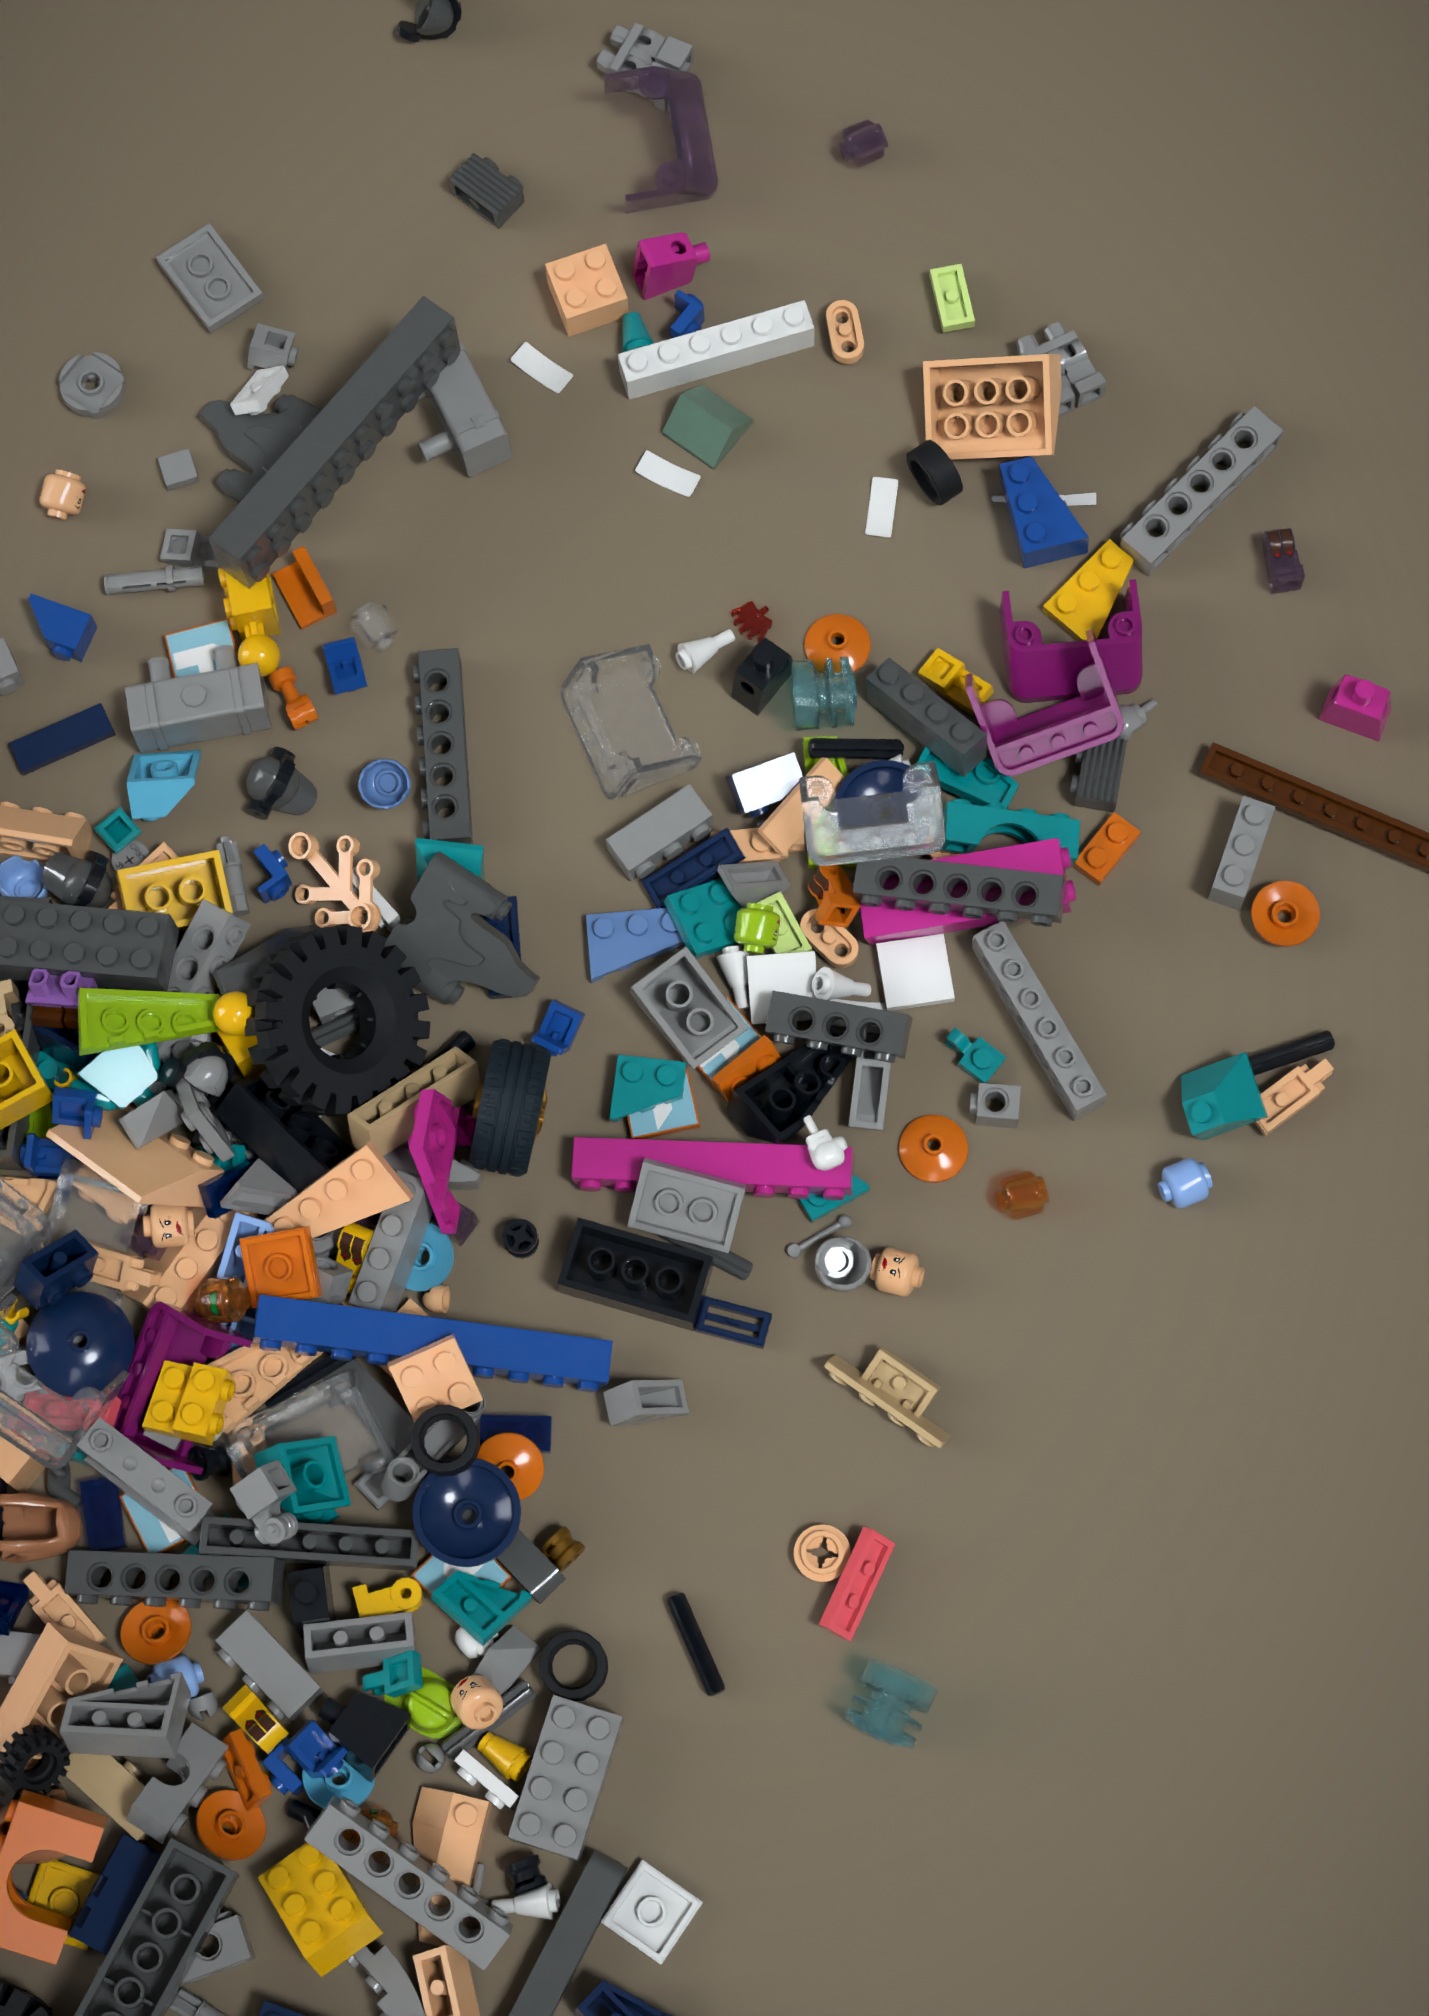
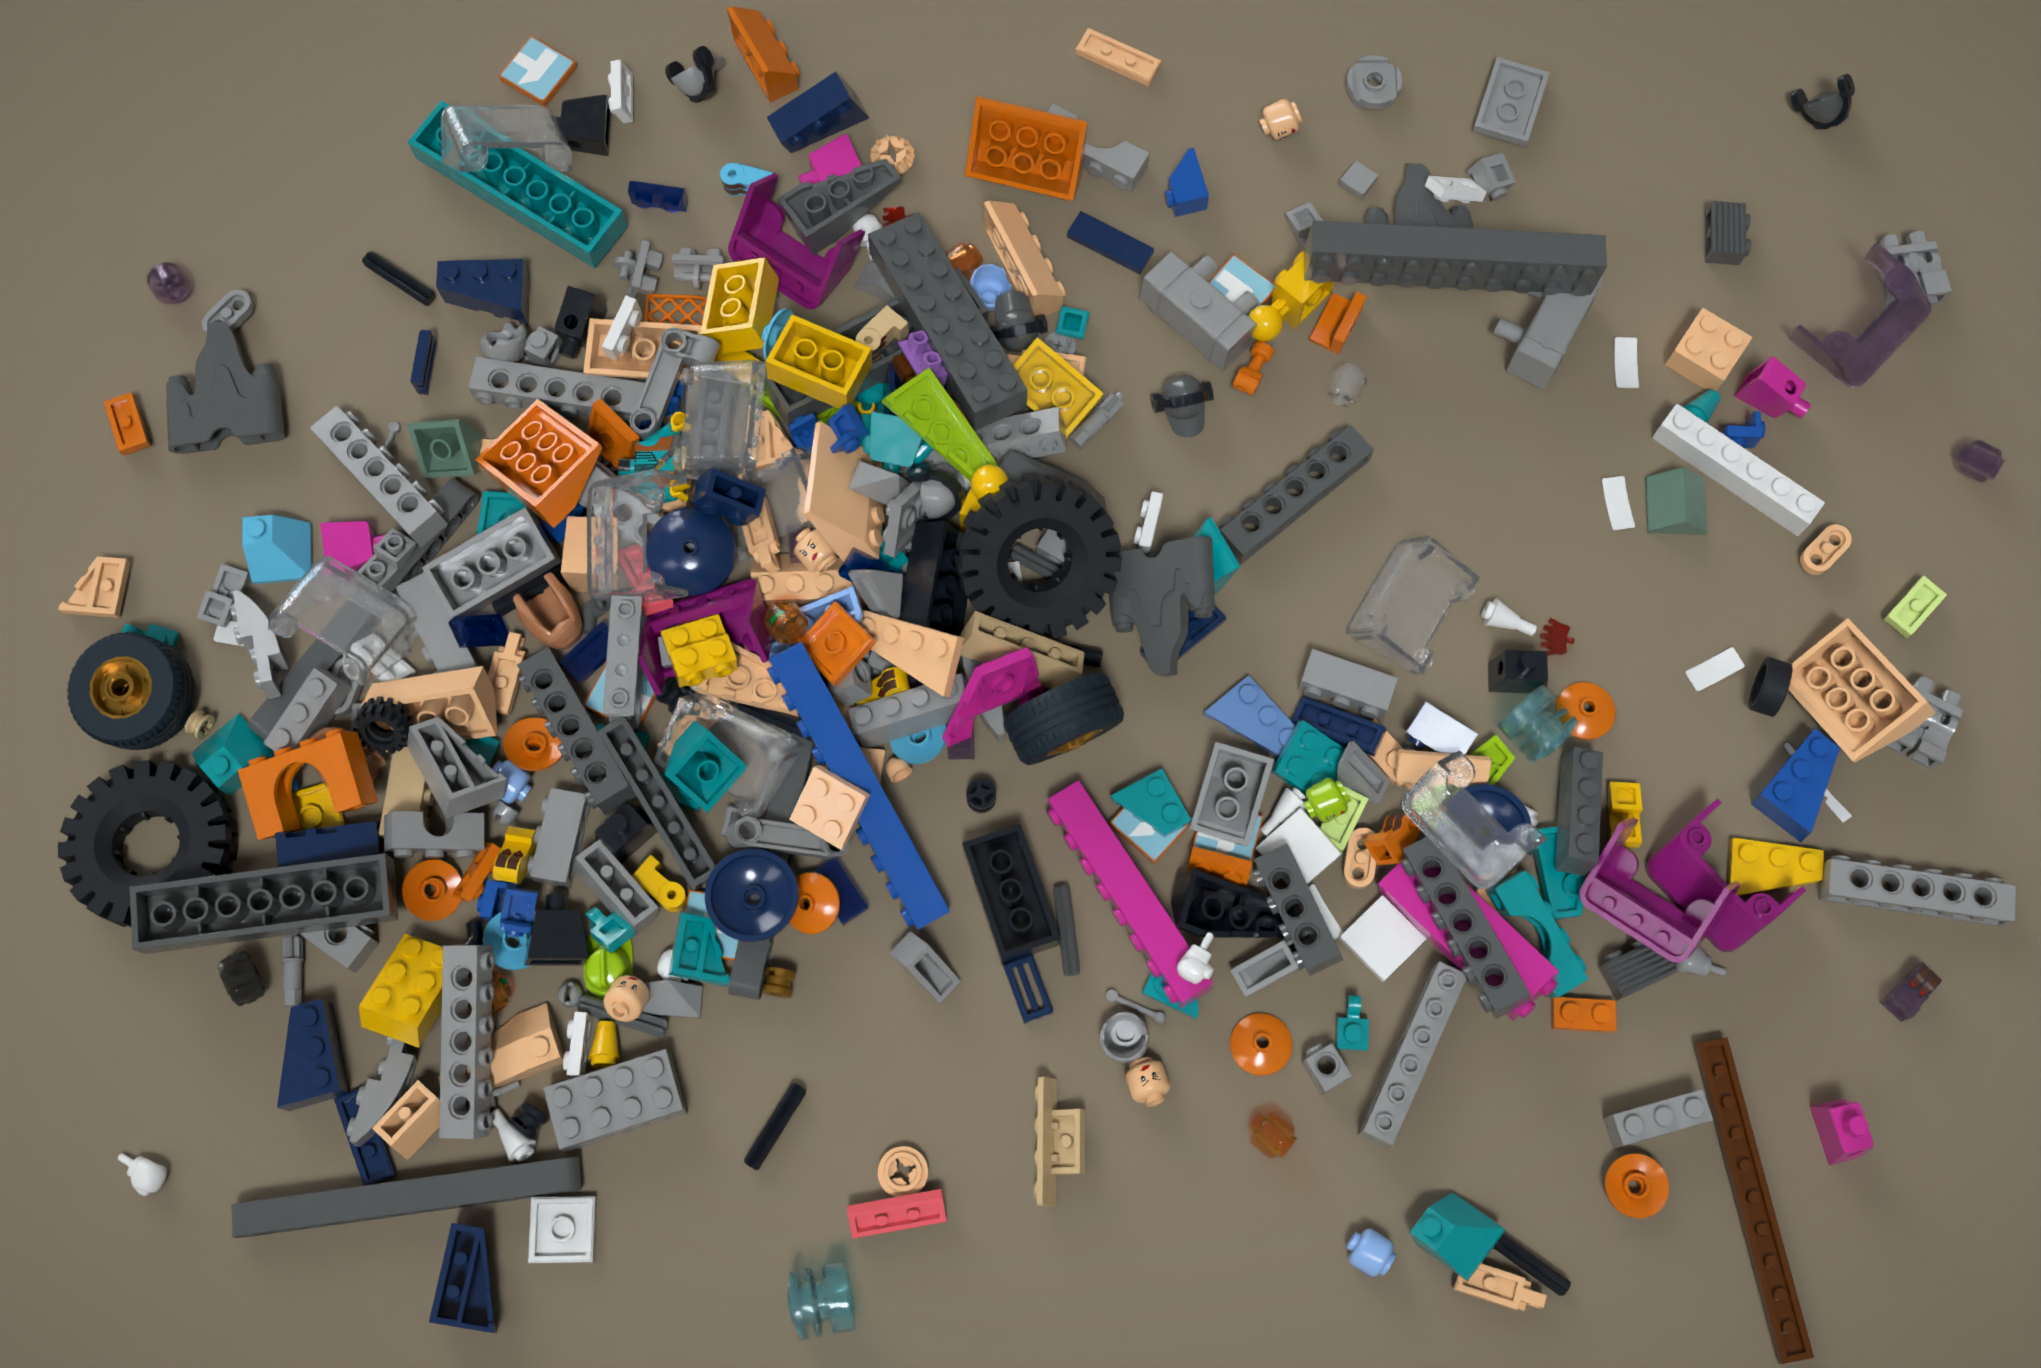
camera: 50 degrees right, 0 degrees up
(160, 782) = (1126, 324): medium azure slope -> none
(168, 578) = (1275, 228): light grey pin -> none
(260, 1499) = (658, 746): light grey brick -> none
(274, 866) = (1116, 452): blue bracket -> none
(340, 884) = (1132, 522): light nougat plant -> none
(344, 665) = (1303, 385): blue bracket -> none
(384, 783) = (1238, 471): medium blue hair -> none
(425, 1421) = (776, 824): black tyre -> none
(558, 1028) = (1150, 714): blue bracket -> none
(571, 1638) = (677, 1046): black tyre -> none
(686, 1205) = (1084, 894): light grey plate -> none
(832, 985) = (1325, 884): white cone -> none
(854, 748) = (1516, 776): black axle -> none

